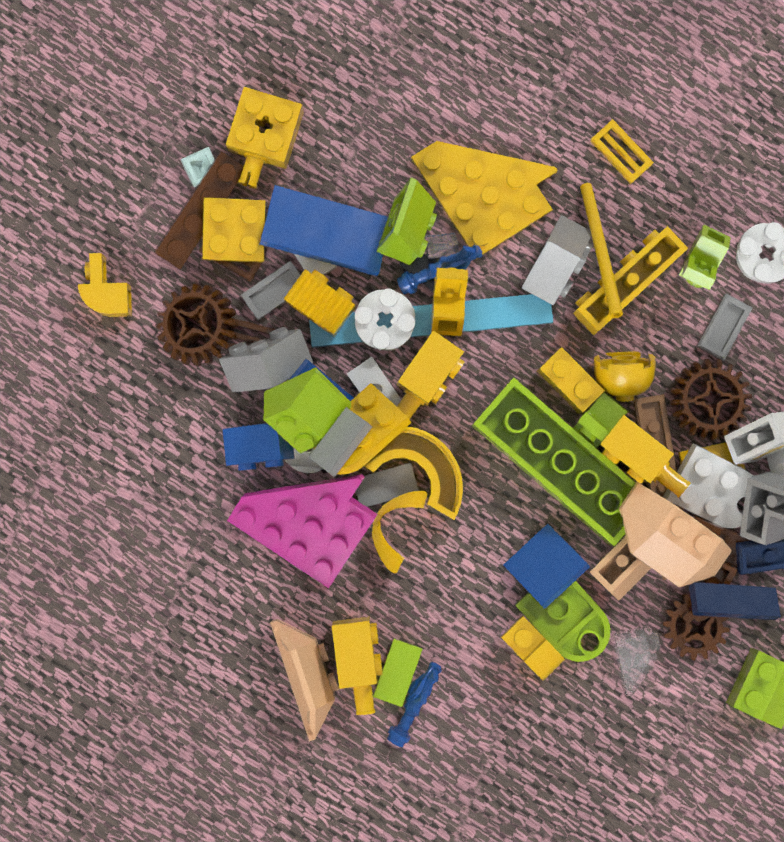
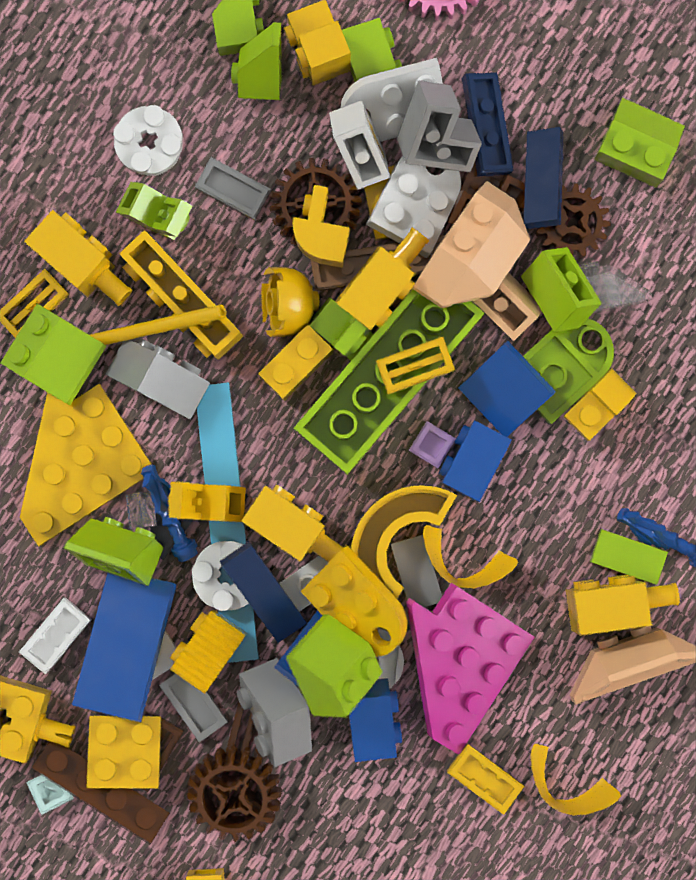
camera: 80 degrees left, 0 degrees up
(187, 640) = (595, 799): none -> yellow piece
(206, 543) = (485, 778): none -> yellow plate
(334, 171) = (55, 635): none -> white plate
(340, 442) = (370, 627): light grey tile -> none
(370, 350) = (263, 592): none -> dark blue tile
(483, 537) = (475, 460): none -> blue brick
(497, 500) = (432, 444): none -> lavender tile
(556, 487) = (387, 376): none -> yellow tile
(578, 169) = (53, 354): none -> lime slope
(635, 614) = (561, 289): none -> lime brick
(661, 191) = (77, 259): none -> yellow brick
(680, 398) = (320, 240): none -> yellow brick

